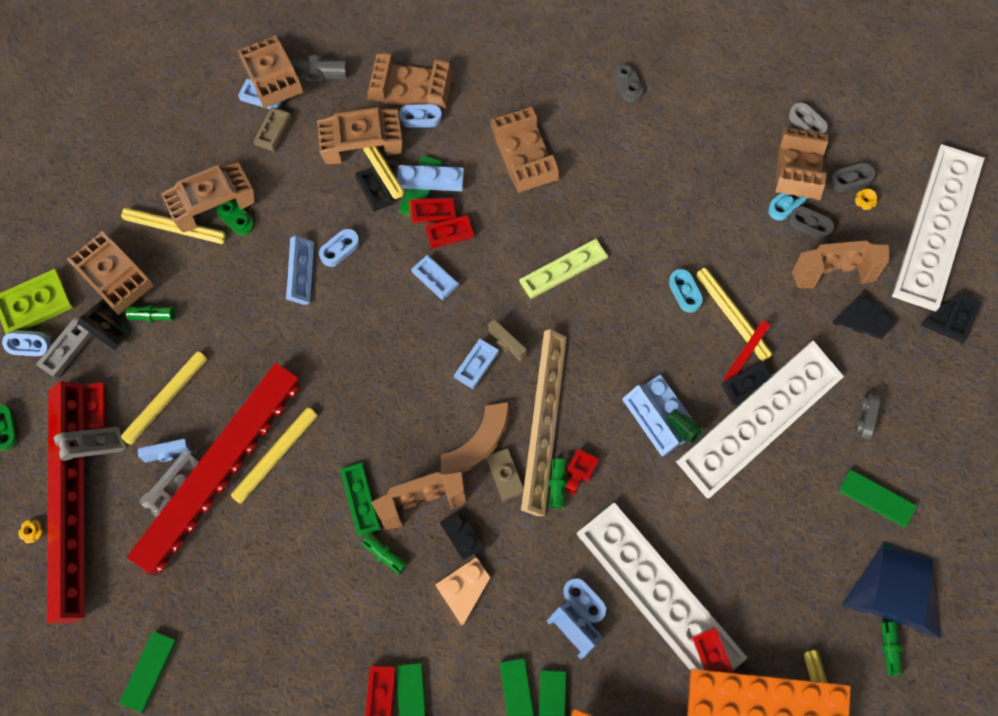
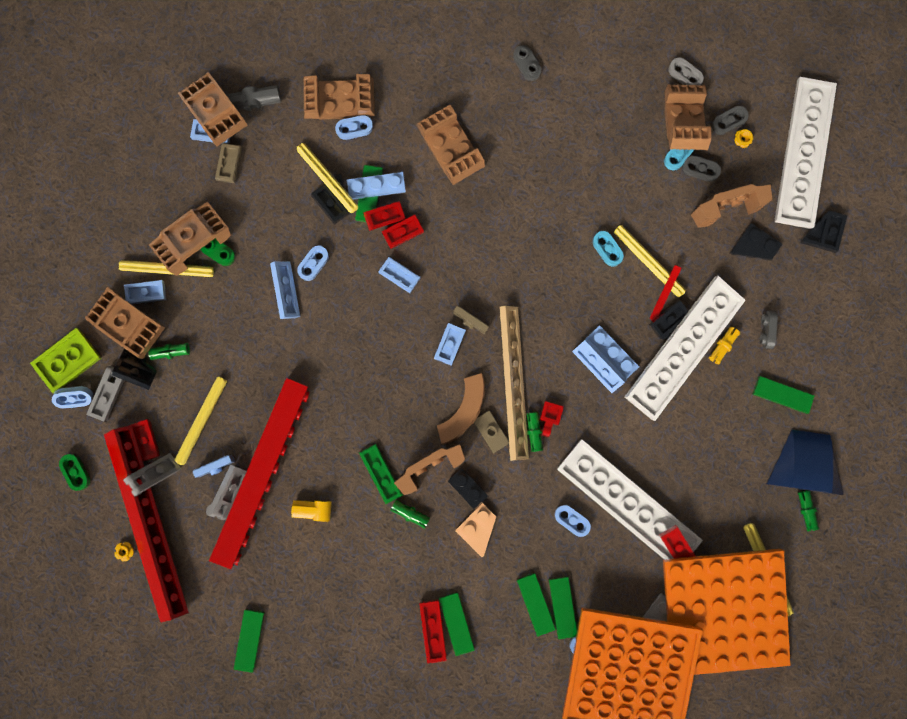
camera: 15 degrees left, 15 degrees up
(143, 245) = (145, 292): none -> light blue plate
(270, 526) = (312, 510): none -> yellow piece
(273, 455) = (303, 451): light yellow axle -> none
(359, 130) = (305, 155): medium nougat plate -> none
(563, 268) = (504, 246): yellowish green tile -> none
(576, 628) = (571, 543): medium blue hinge -> none
(685, 426) = (627, 368): dark green cone -> none
(810, 425) = (724, 345): none -> yellow pin

